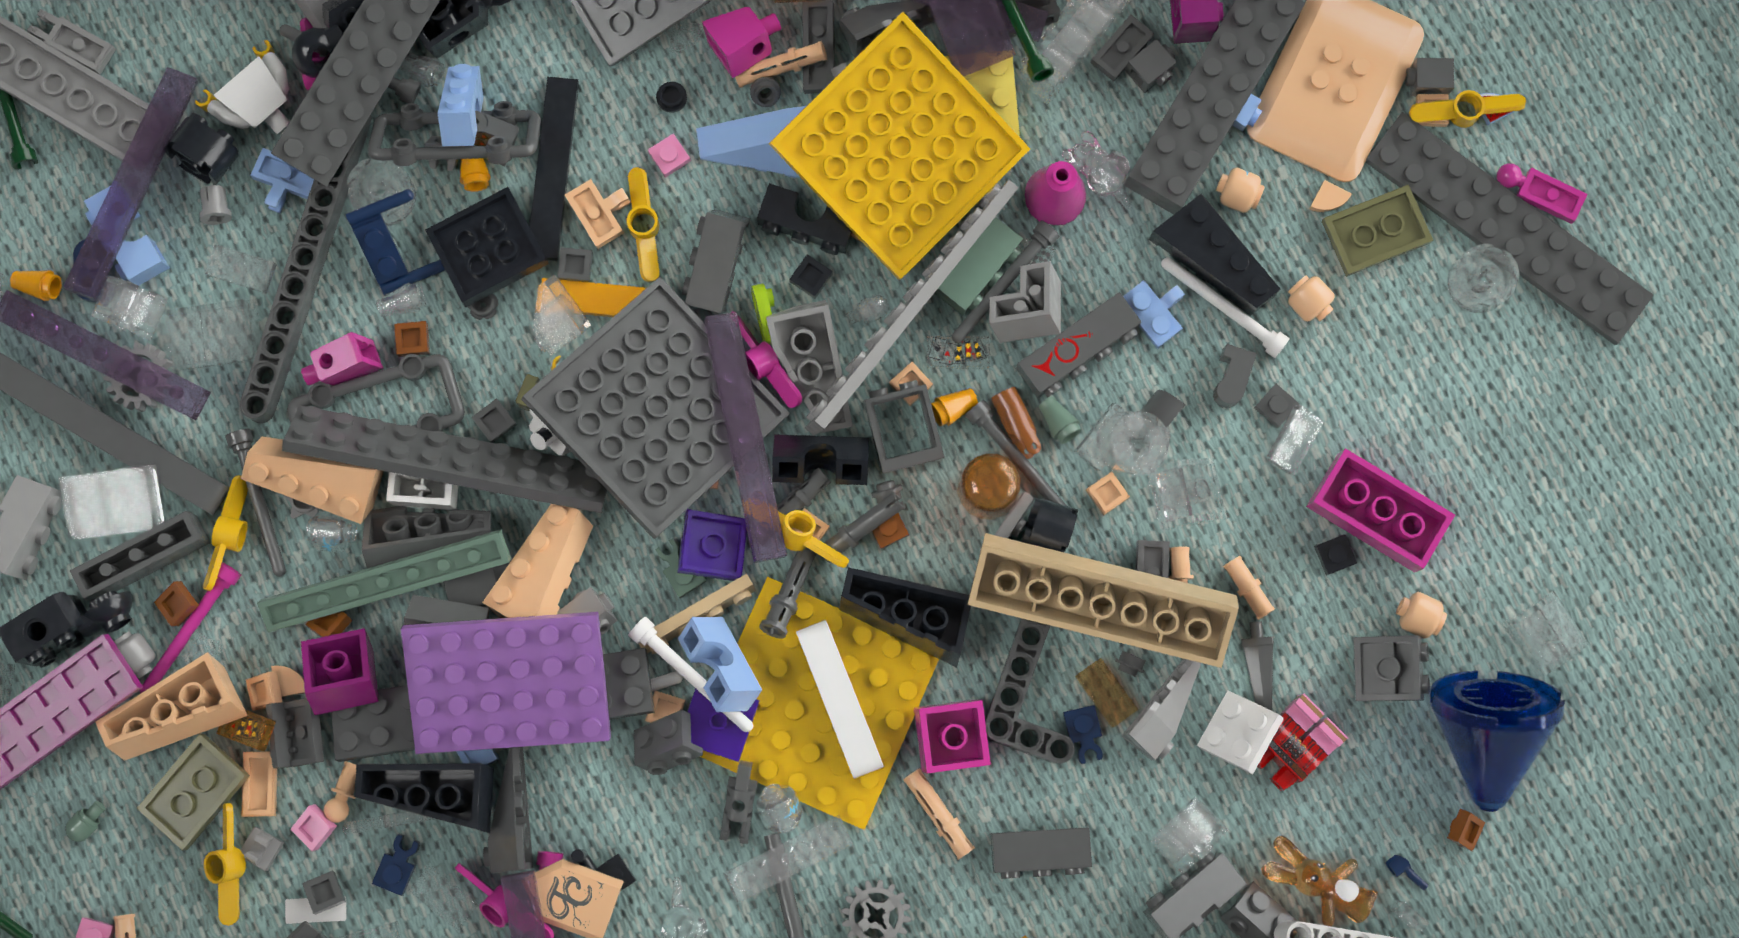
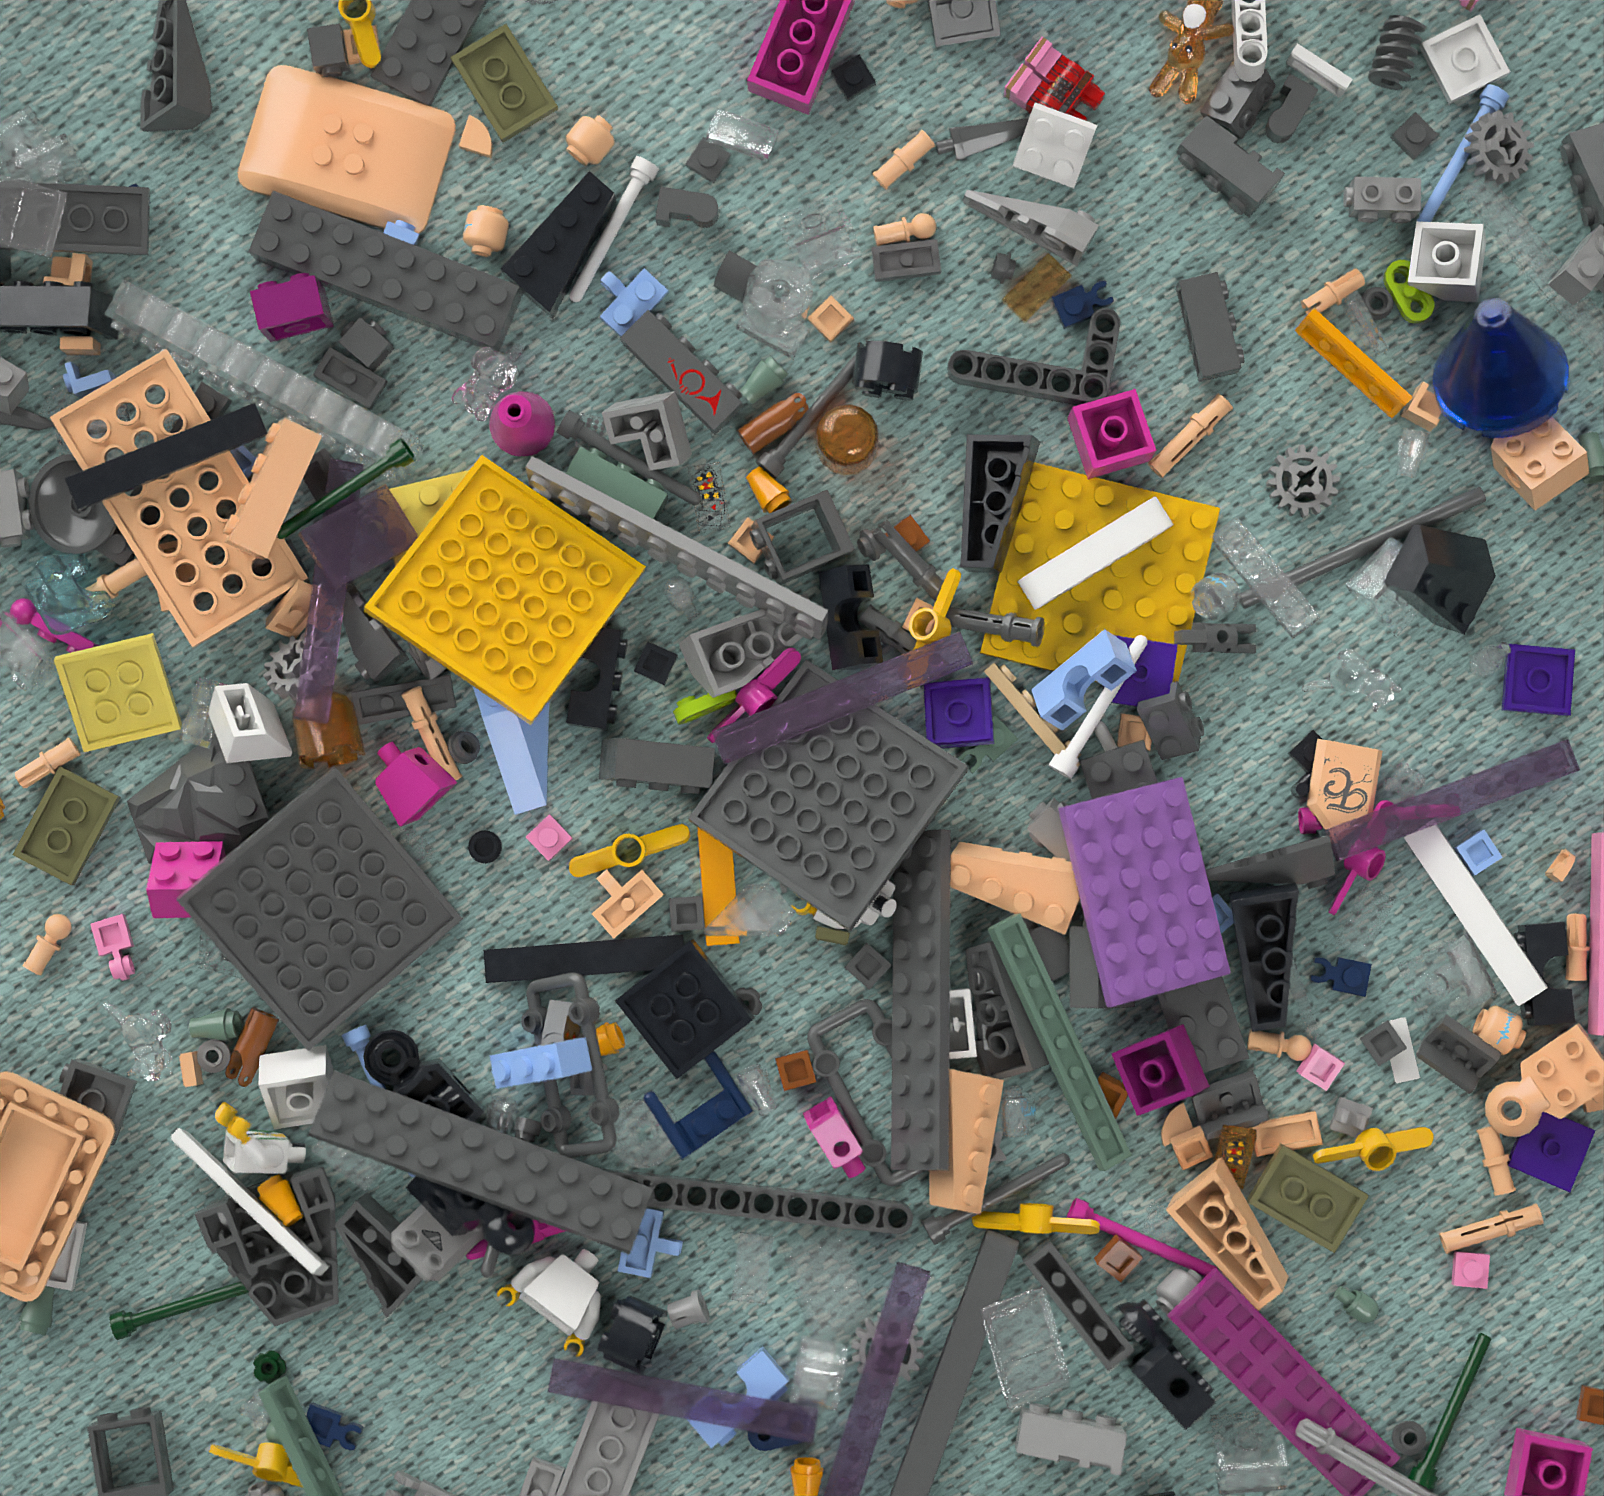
camera: 90 degrees left, 5 degrees up
(1014, 521) = (882, 410): light grey plate -> none
(1103, 600) = (951, 299): tan brick -> none
(1188, 835) = (1168, 180): clear brick -> none

